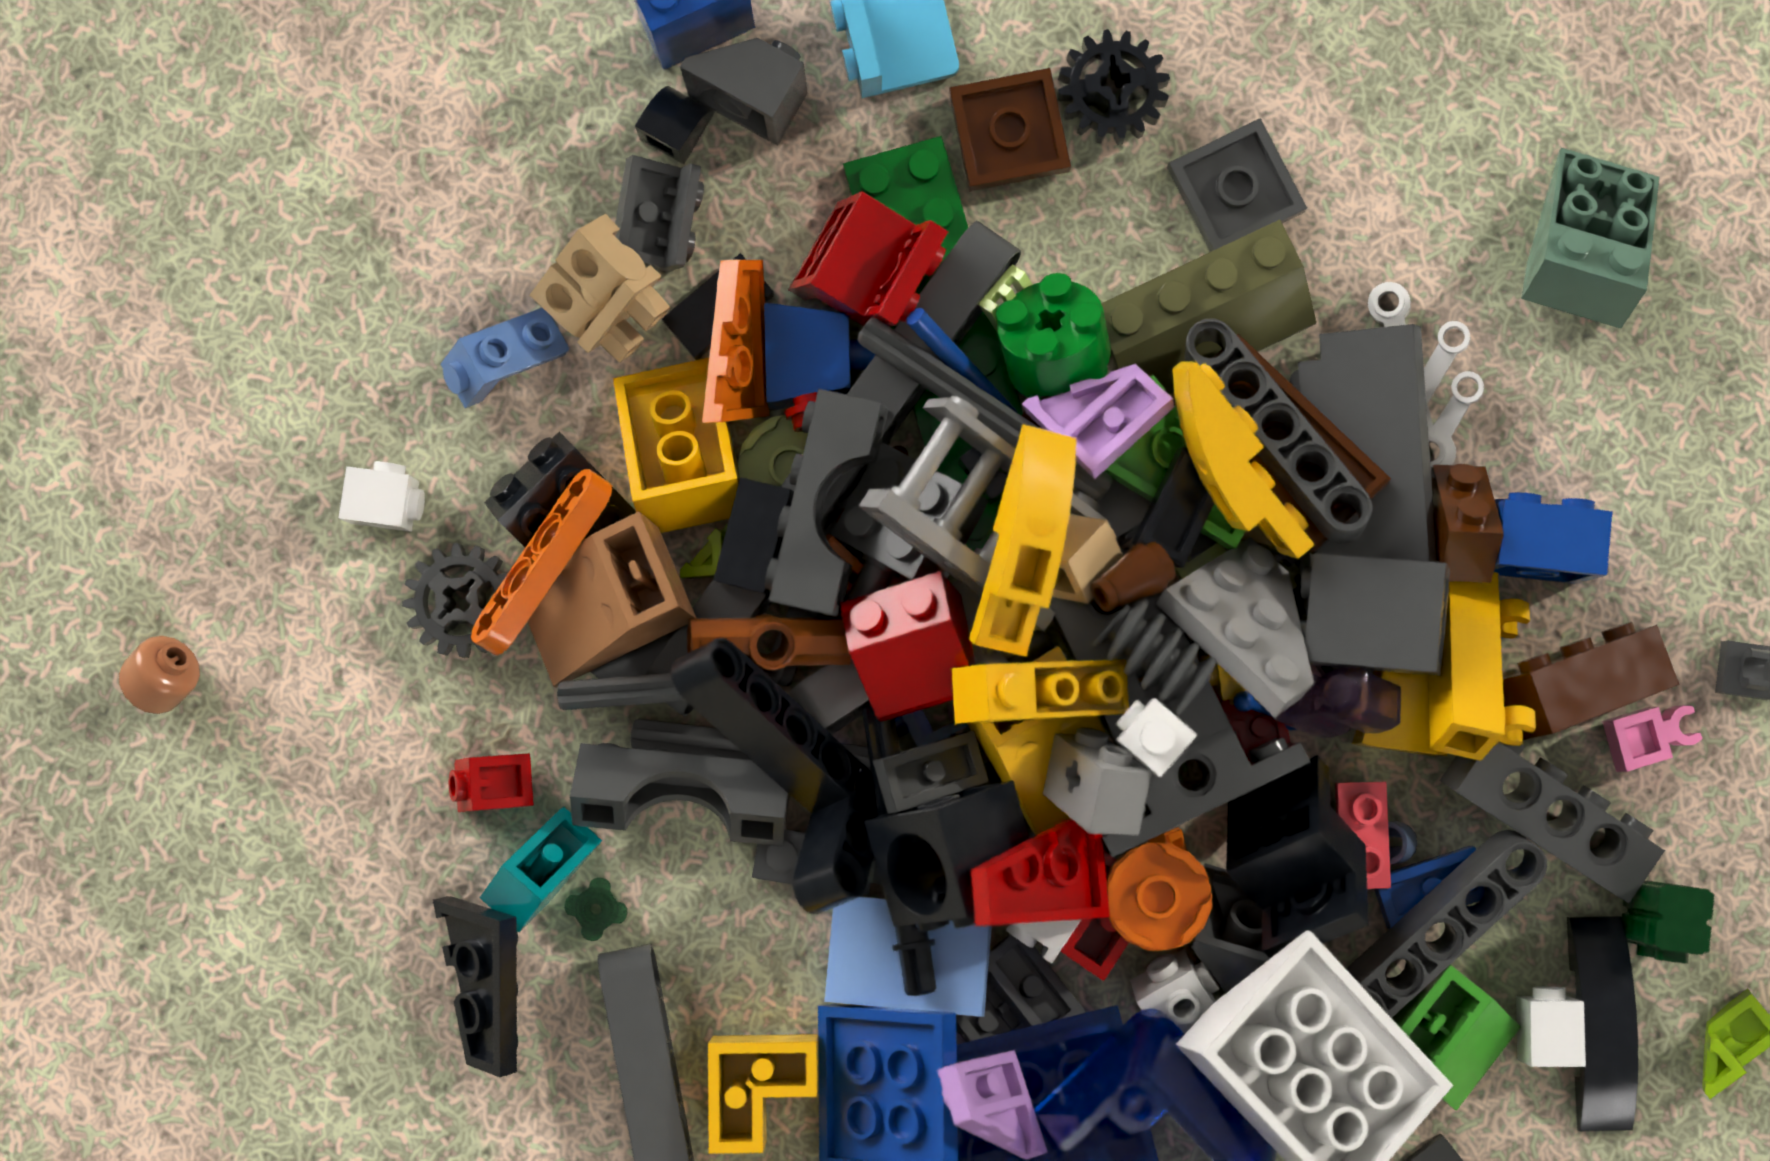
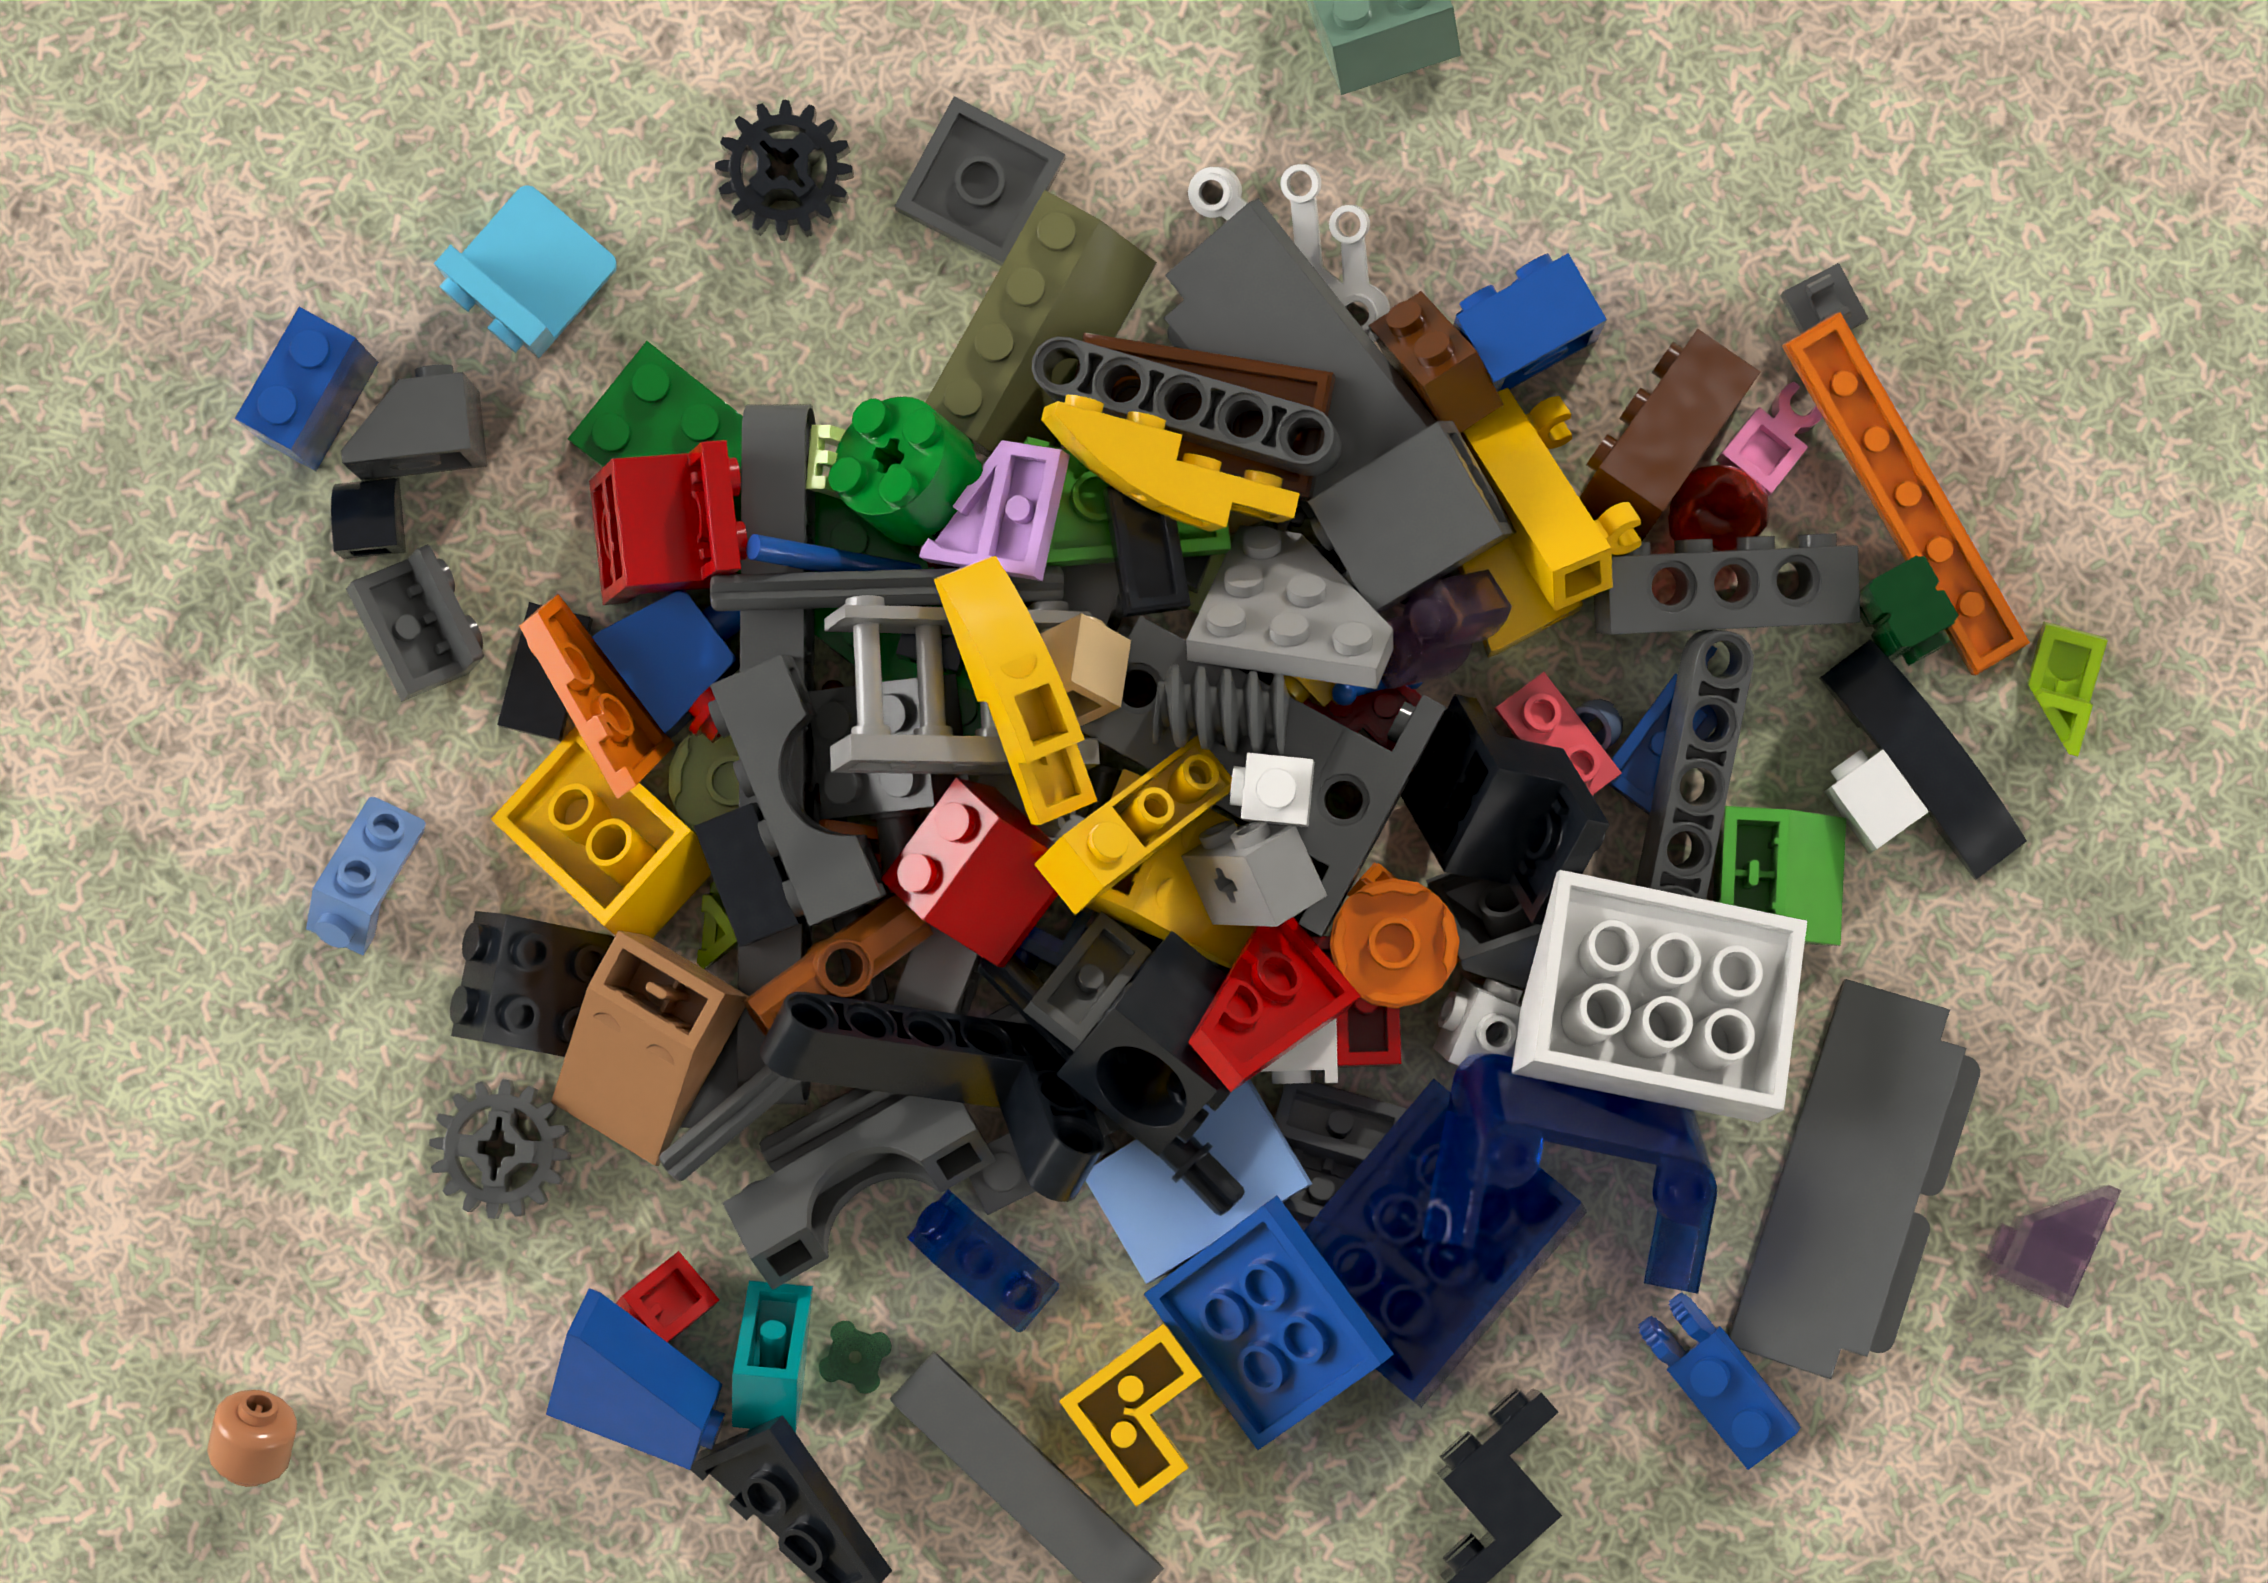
camera: 30 degrees left, 0 degrees up
(381, 497) = (346, 1103): white brick -> none
(433, 823) = (633, 1386): none -> blue slope
(541, 562) = (556, 1050): orange beam -> none
(598, 288) = (414, 740): tan hips -> none
(725, 906) = (982, 1261): none -> clear blue bracket
(993, 1103) = (1375, 1254): lavender wing -> none
(1009, 129) = (711, 285): reddish brown plate -> none
(1134, 576) = (1147, 648): reddish brown cone -> none
(1587, 754) = (1719, 506): none -> clear red hair
(1721, 825) = (1904, 488): none -> orange tile

